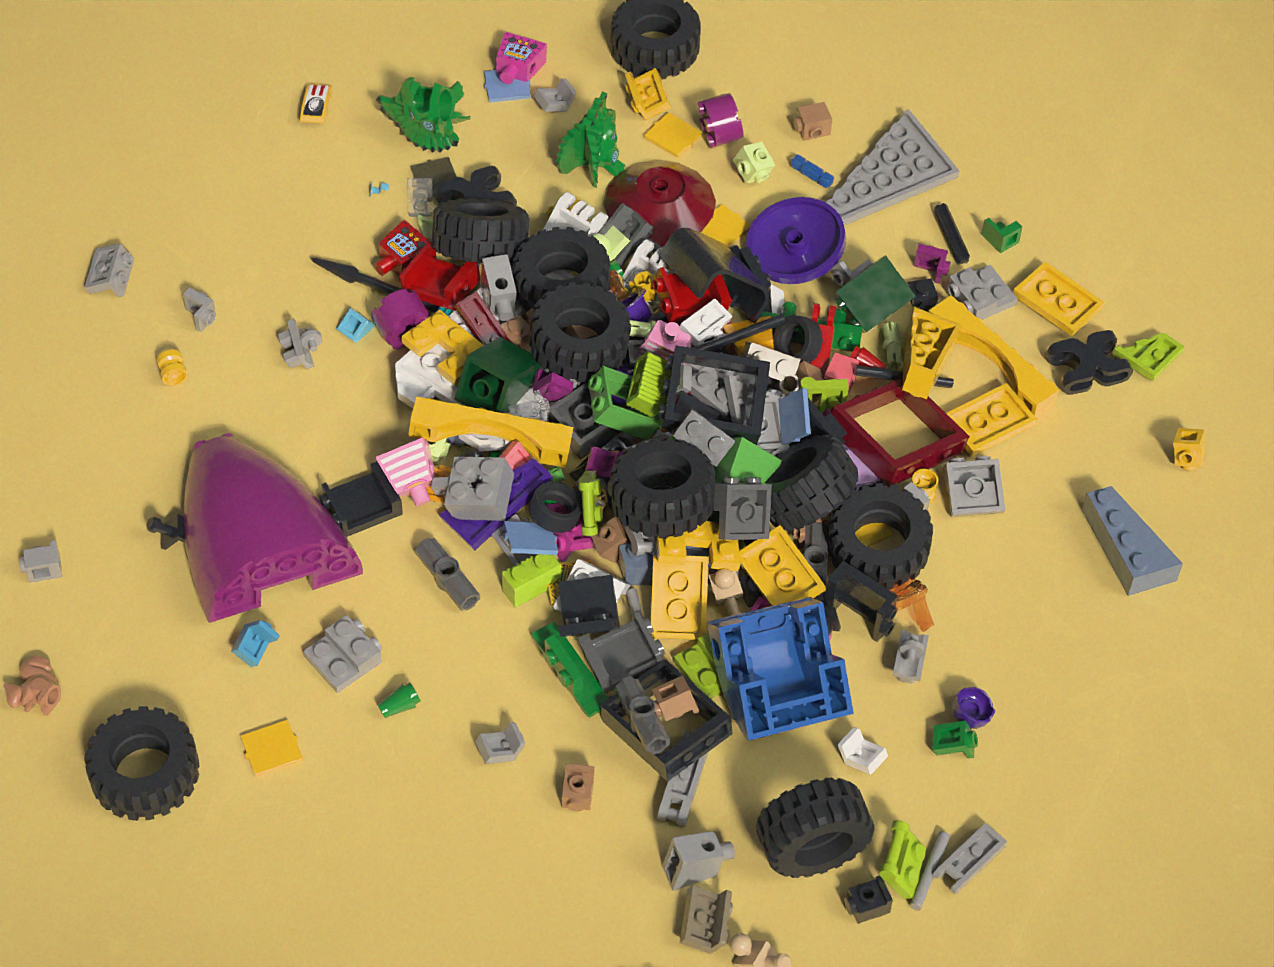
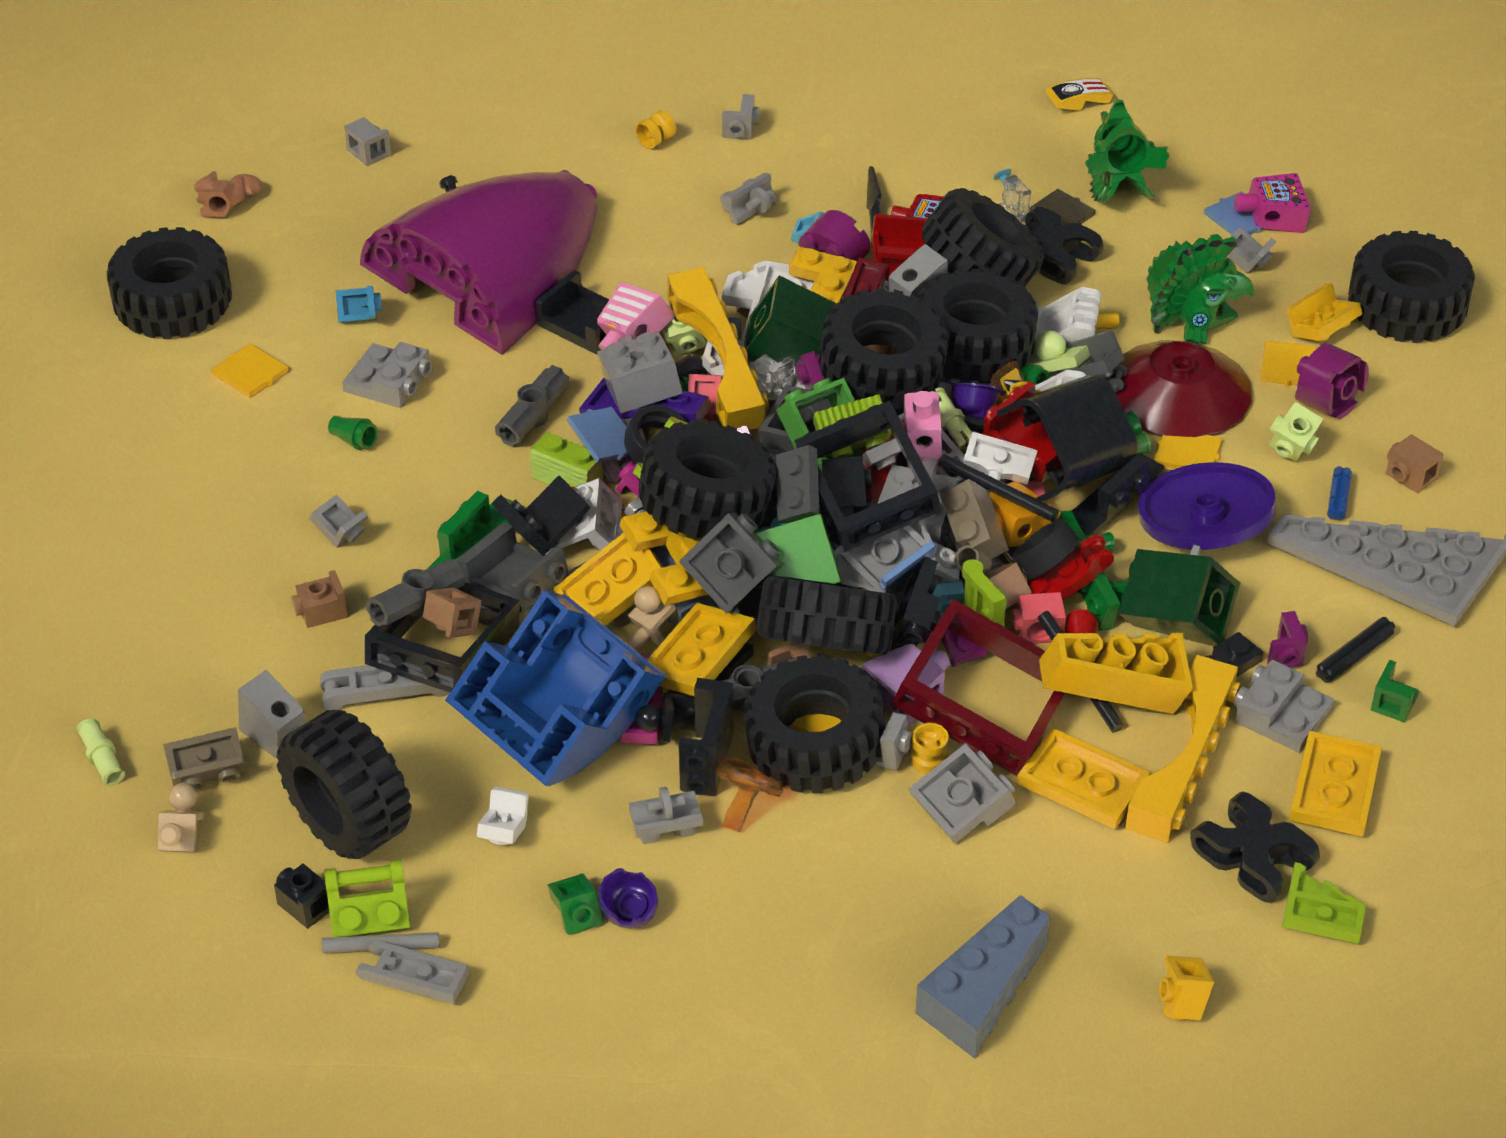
camera: 65 degrees right, 10 degrees down
(110, 270) = (745, 50): light grey bracket -> none
(777, 299) = (1120, 526): white sticker -> none

